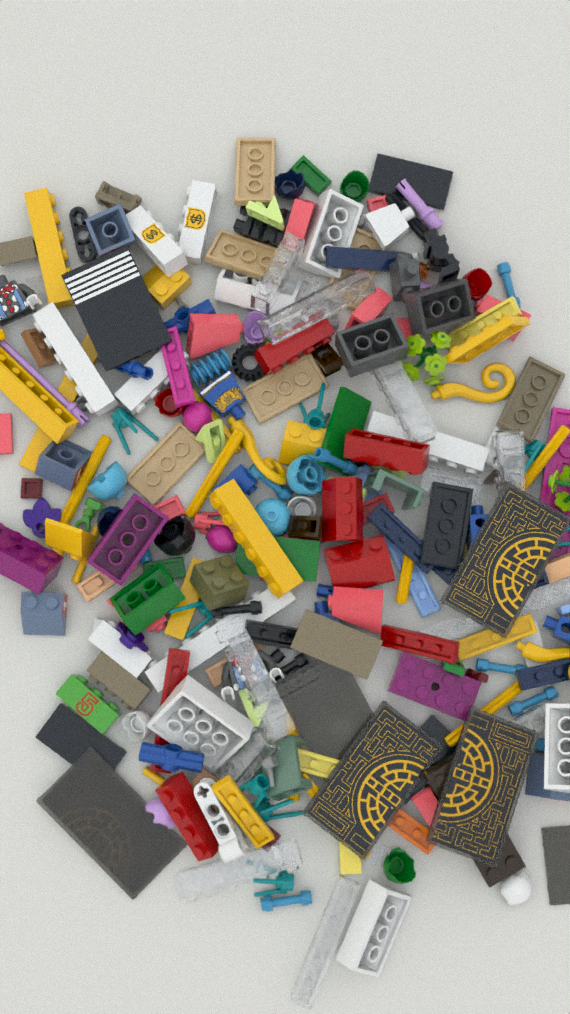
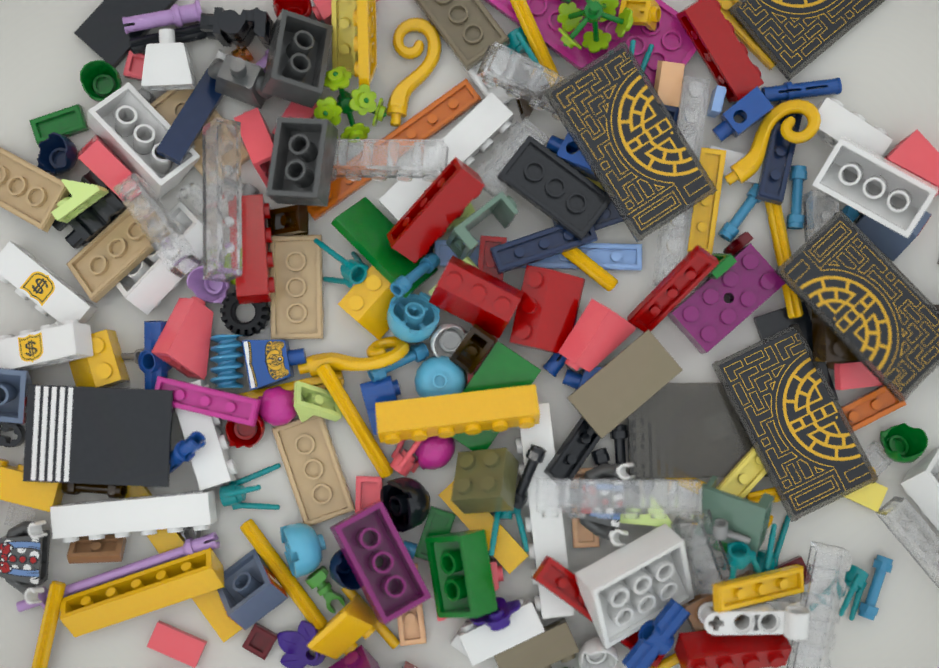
camera: 60 degrees left, 5 degrees up
(83, 334) = (112, 491): none -> dark brown bar
(439, 414) = (419, 127): none -> orange tile

